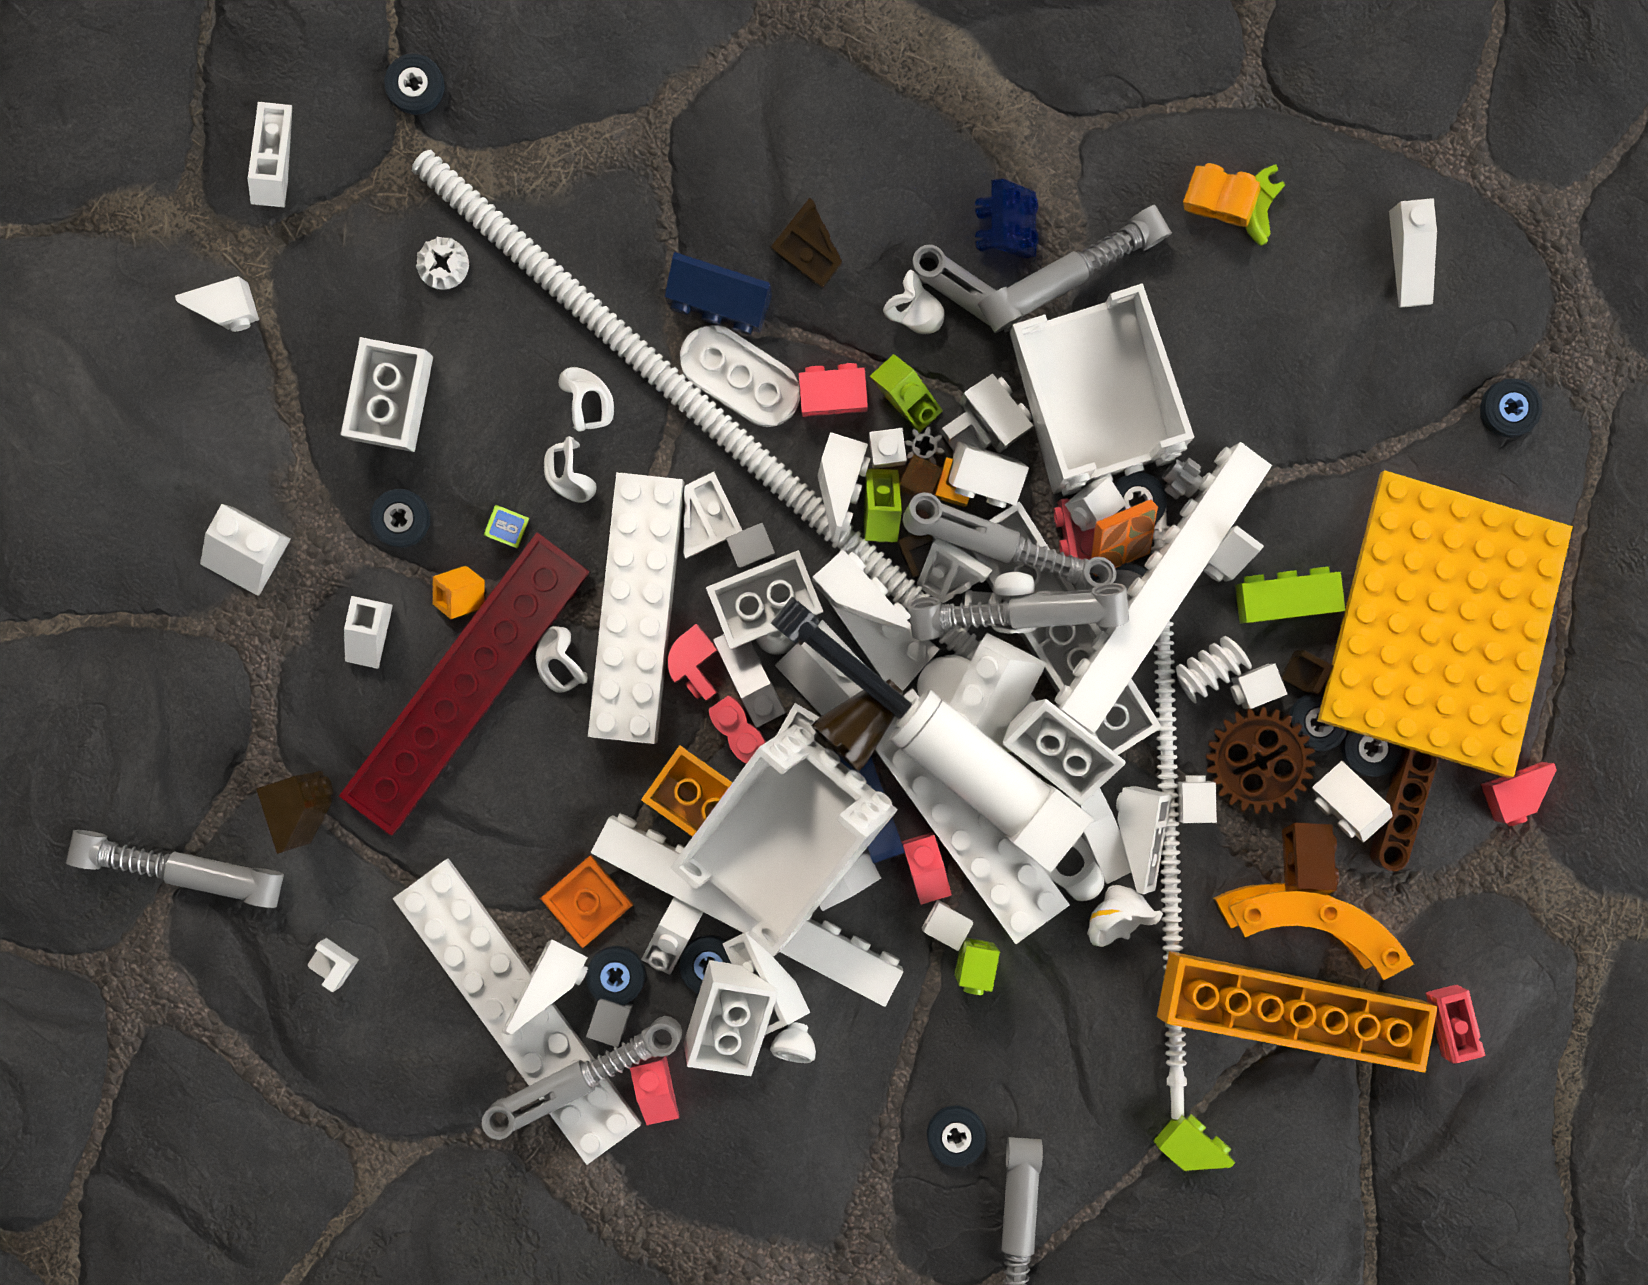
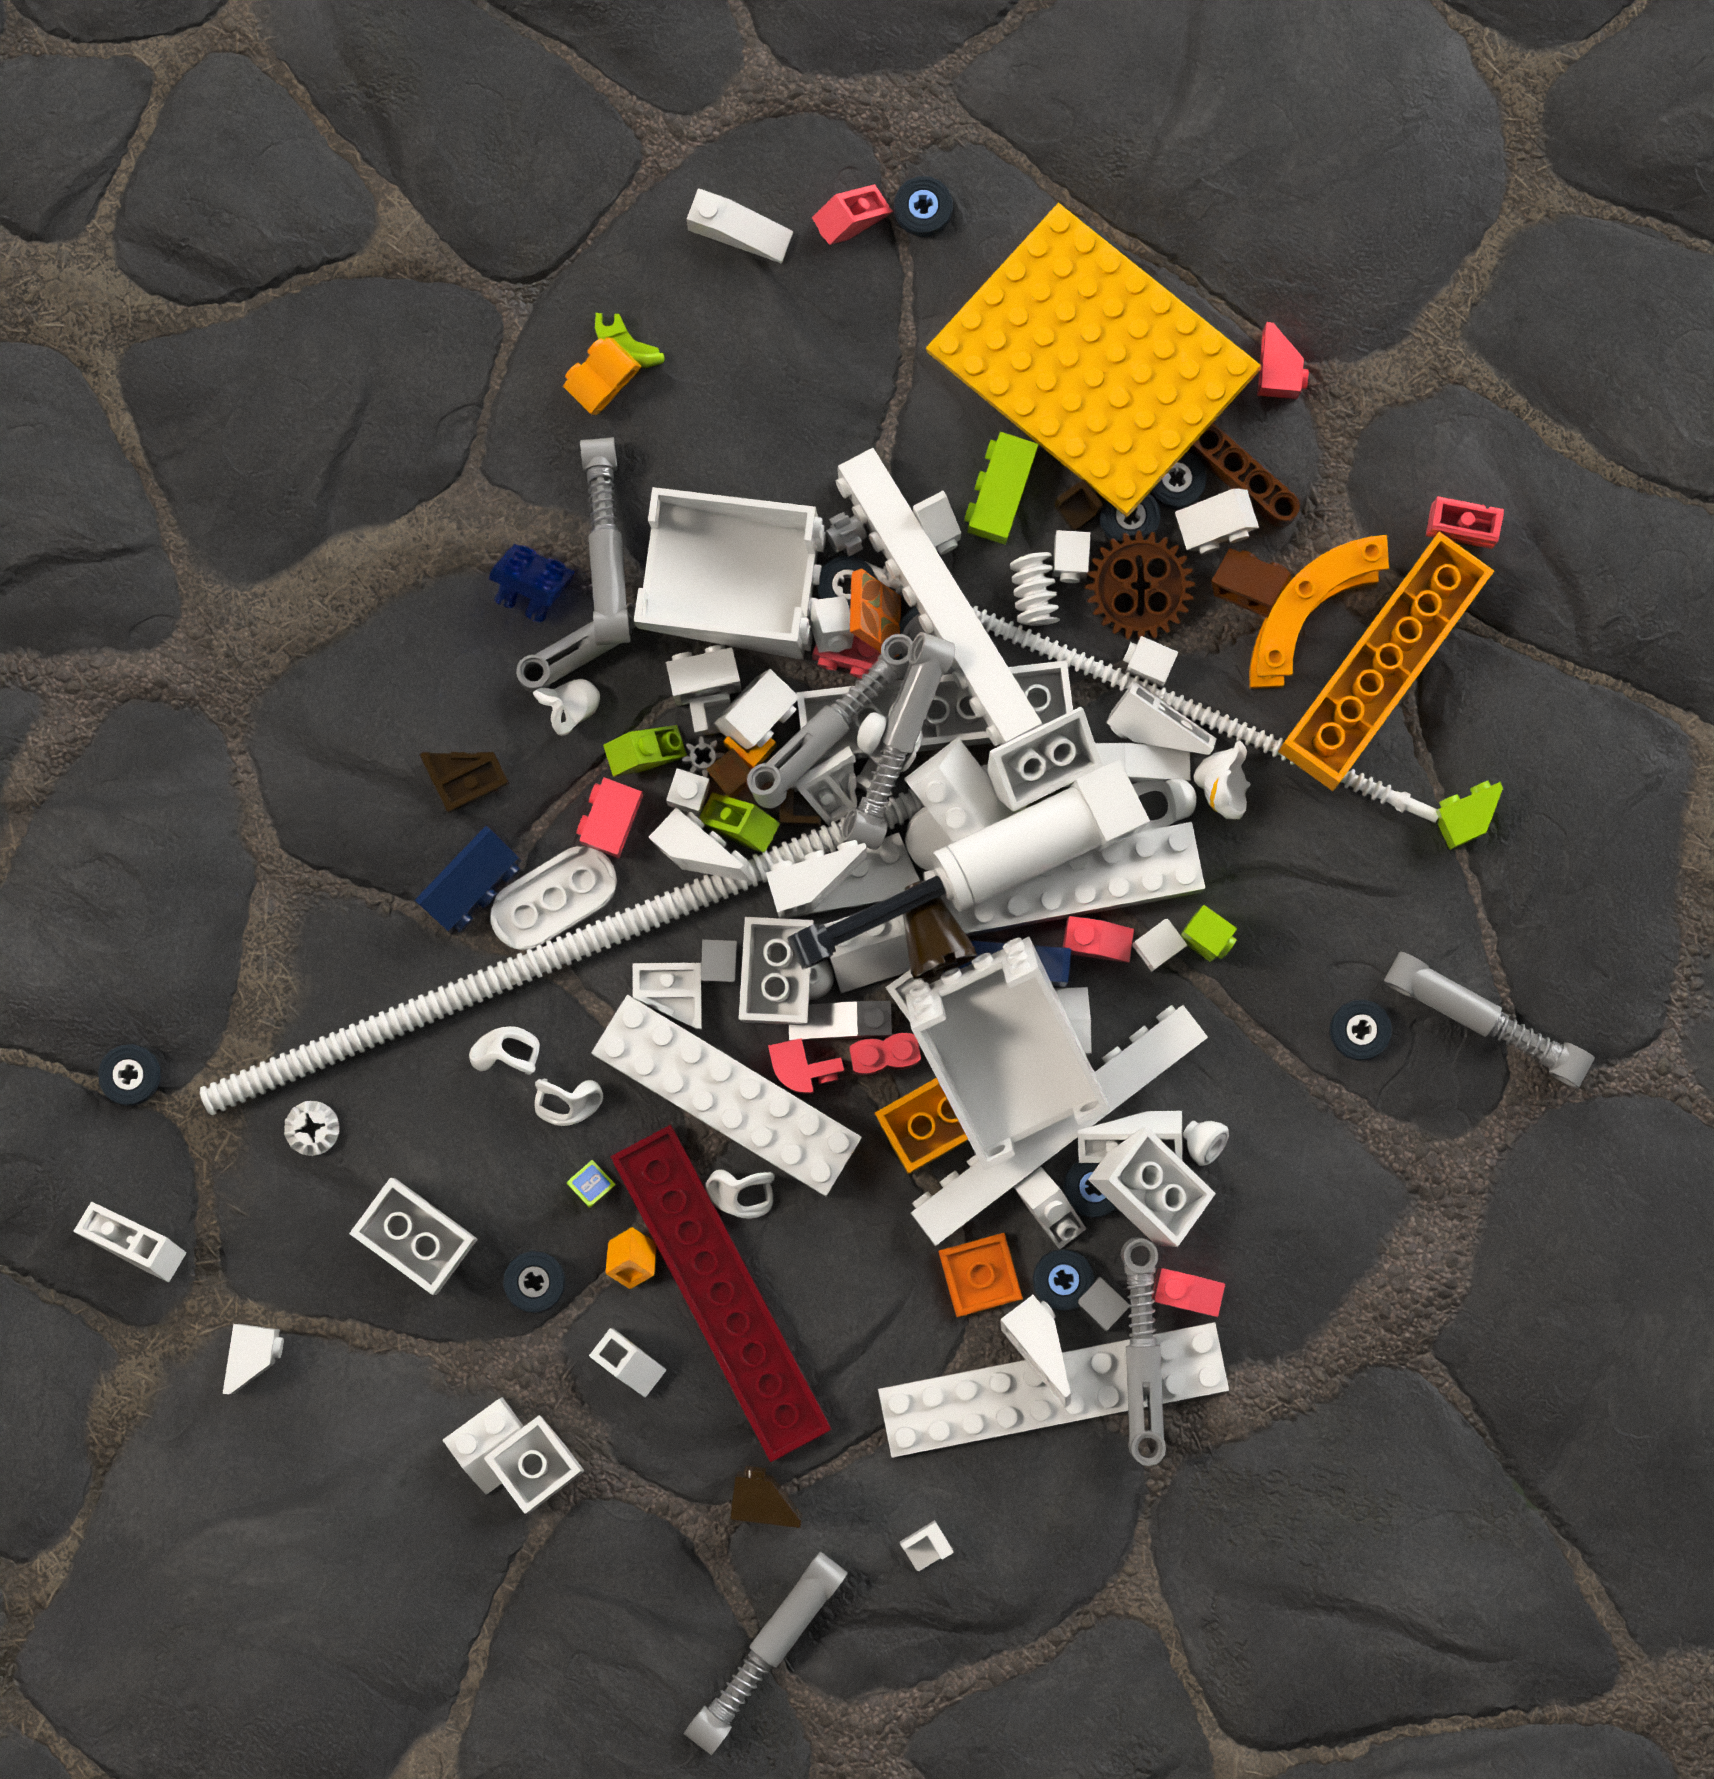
camera: 65 degrees left, 5 degrees down
(238, 593) = (533, 1464): none -> white slope
(1474, 346) = (851, 213): none -> coral slope

